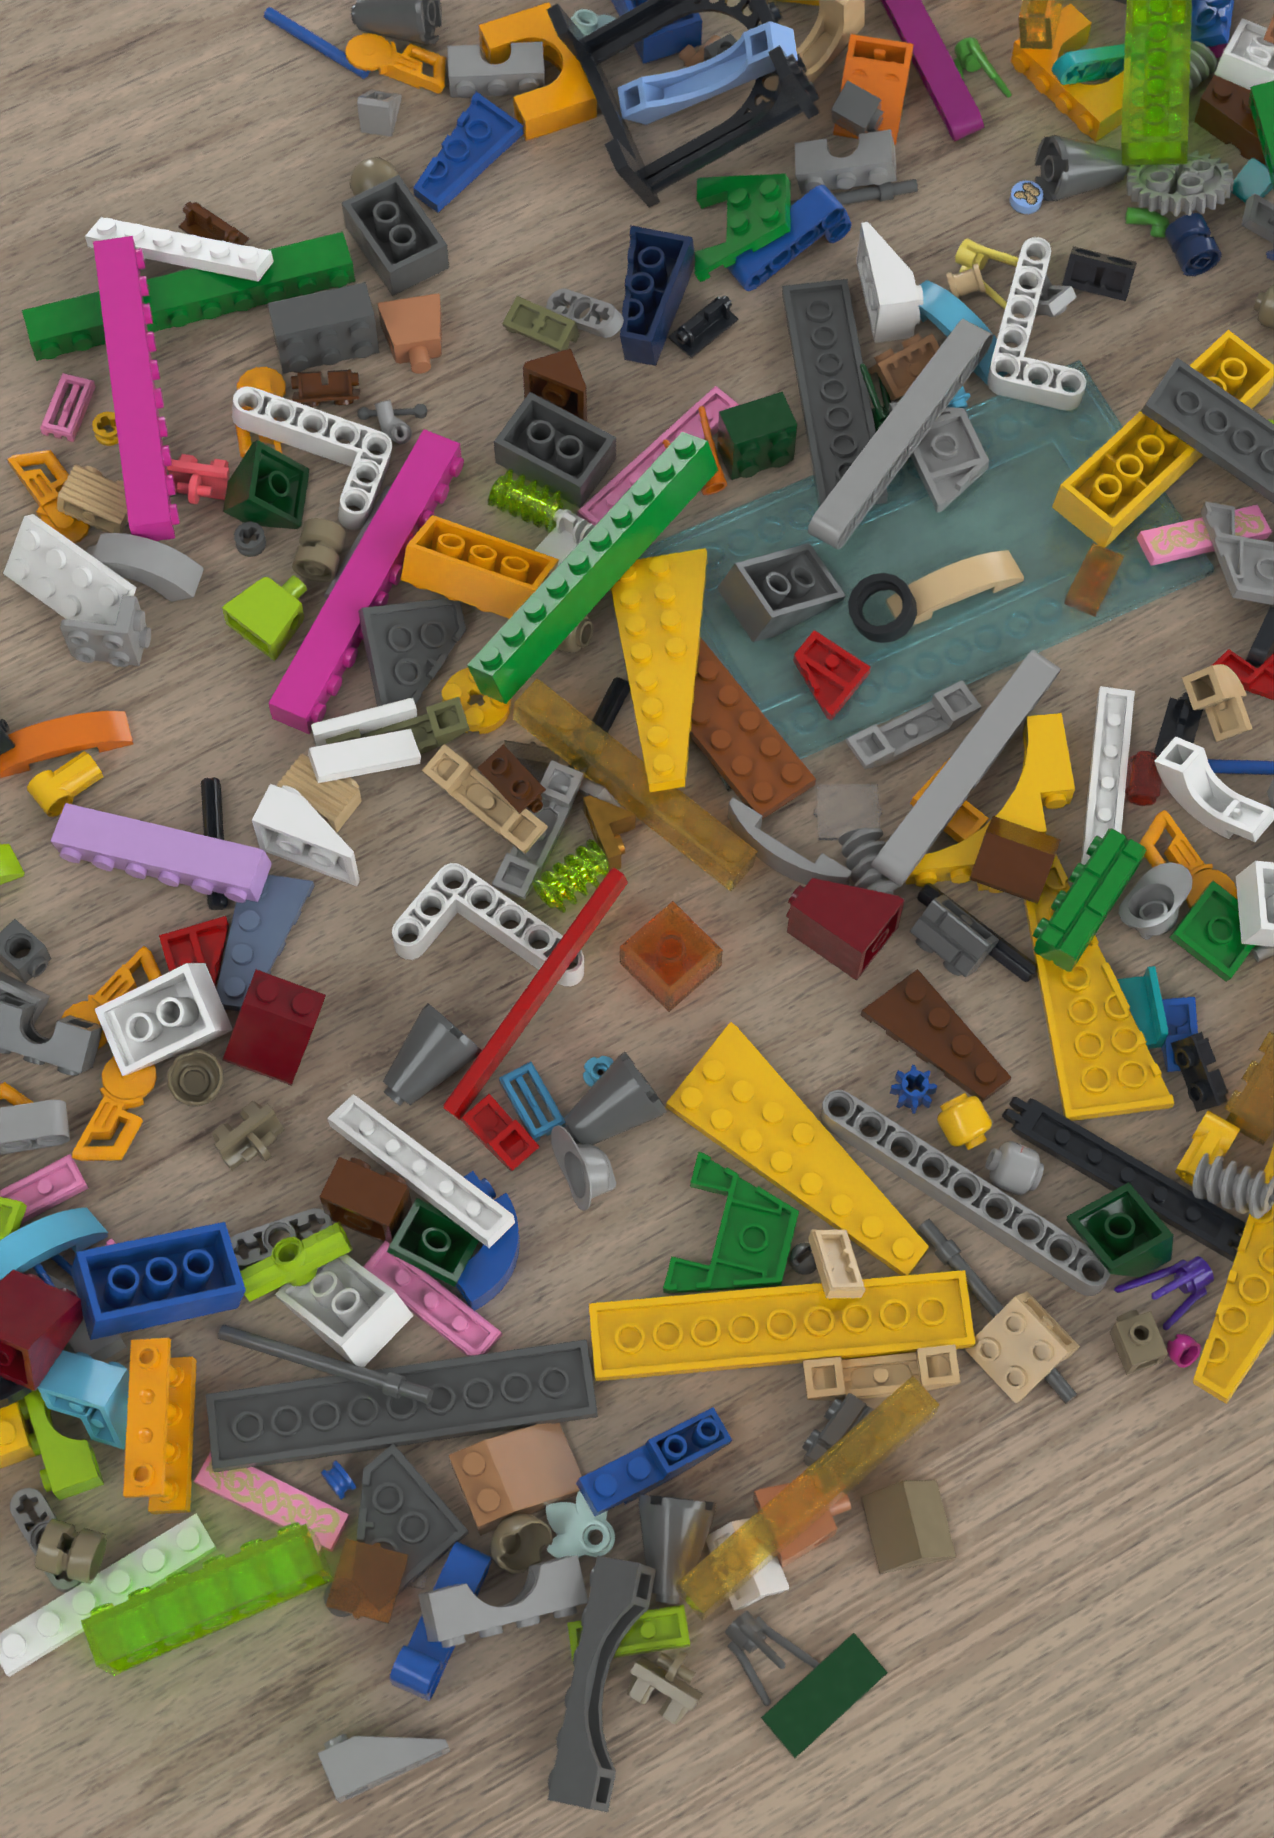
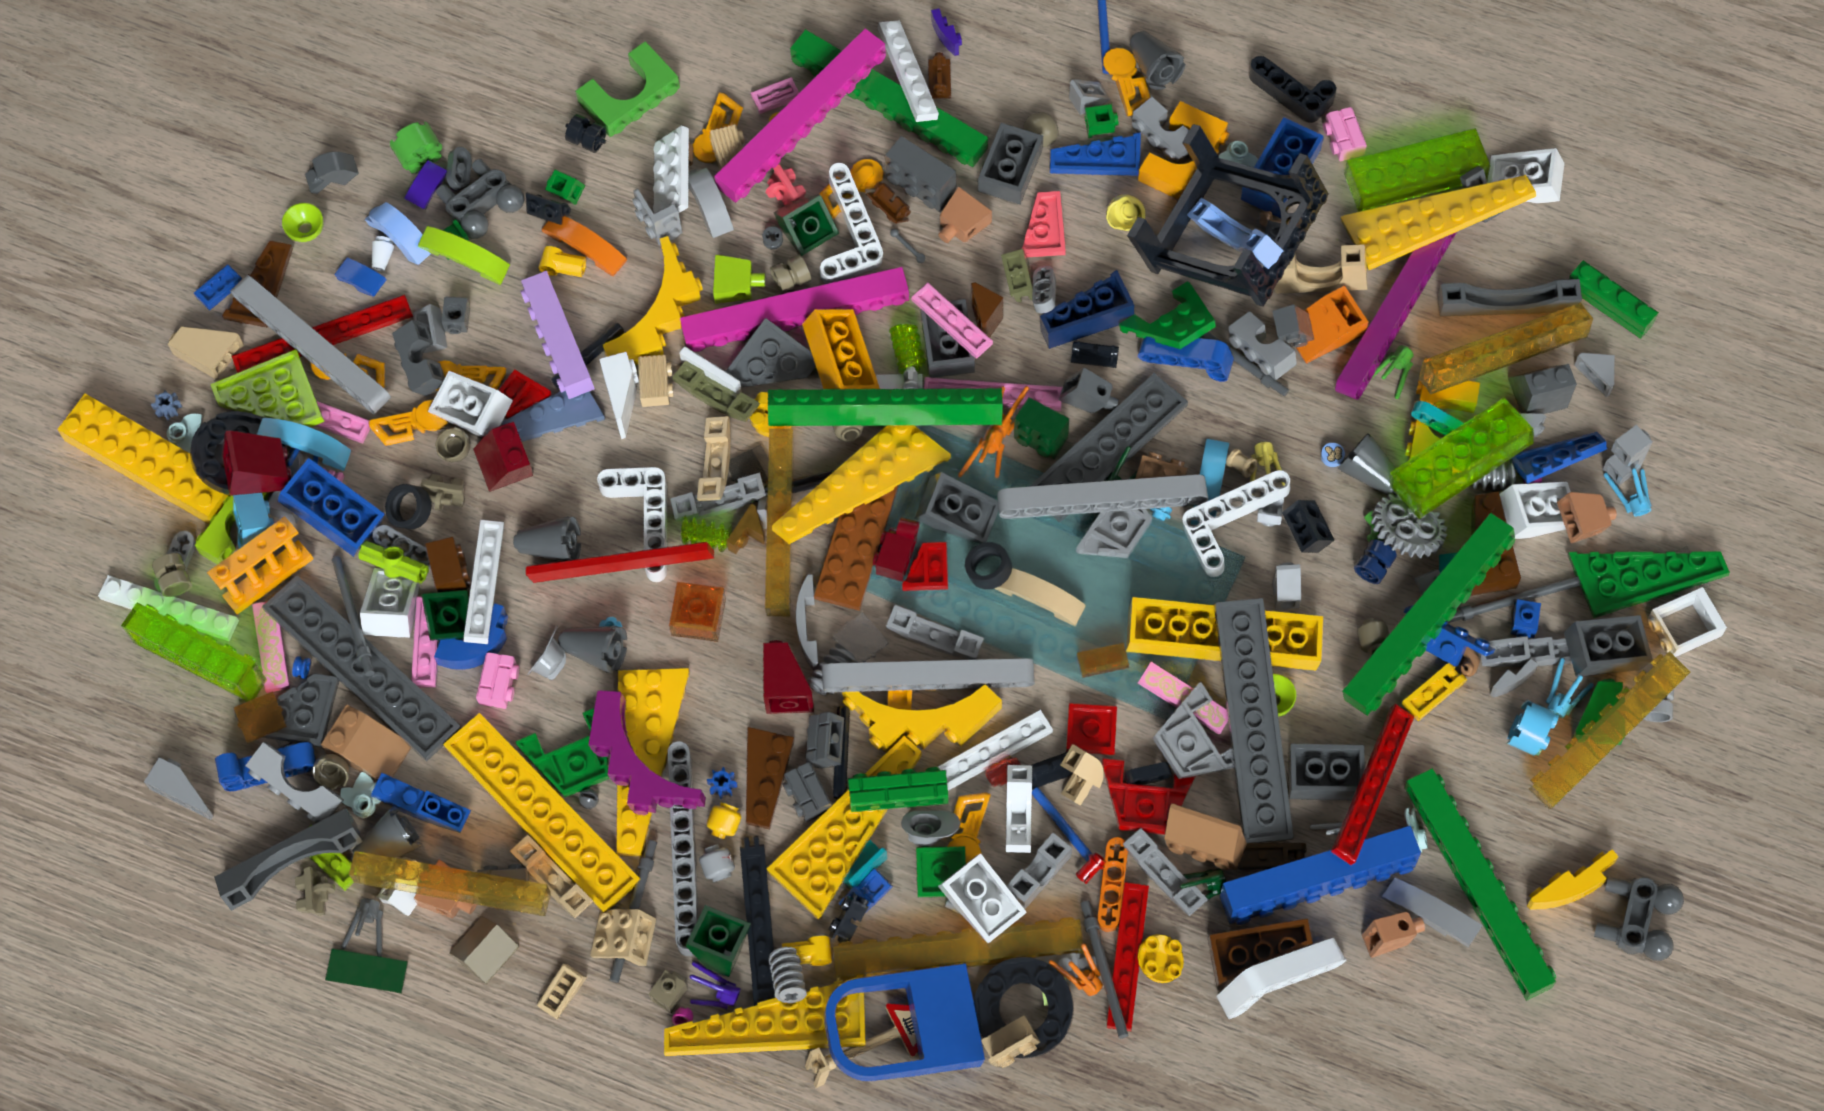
camera: 55 degrees right, 0 degrees up
(171, 185) = (946, 33): none -> dark purple slope
(211, 1206) = (393, 503): none -> black tyre
(223, 686) = (664, 316): none -> yellow arch
(364, 755) = (687, 384): white tile -> none
(391, 425) = (897, 252): light grey arm -> none
(422, 118) = (1100, 120): none -> green brick
(499, 1133) = (540, 605): red slope -> none
(502, 261) = (1045, 228): none -> coral wing
(513, 780) = (732, 464): reddish brown hinge -> none
(546, 422) = (952, 320): none -> bright pink tile
(546, 1128) = (578, 590): dark azure tile -> none
(561, 172) = (1123, 212): none -> light yellow hair
(562, 1252) = (496, 680): none -> bright pink brick
(728, 501) = (990, 444): none -> orange plant
(750, 361) = (1088, 392): none -> dark grey torso
(779, 686) = (896, 549): none -> dark red hinge
(836, 1264) = (591, 812): tan plate -> none
(863, 1171) = (646, 788): none -> magenta arch
(887, 288) = (1189, 430): white slope -> none
(1002, 1004) = (807, 792): none -> dark grey brick
(1015, 859) = (891, 735): reddish brown slope -> none
(1025, 1475) = (568, 996): none -> tan slope
(1155, 342) = (1287, 586): none -> slope
(1163, 653) = (1092, 728): none -> red plate

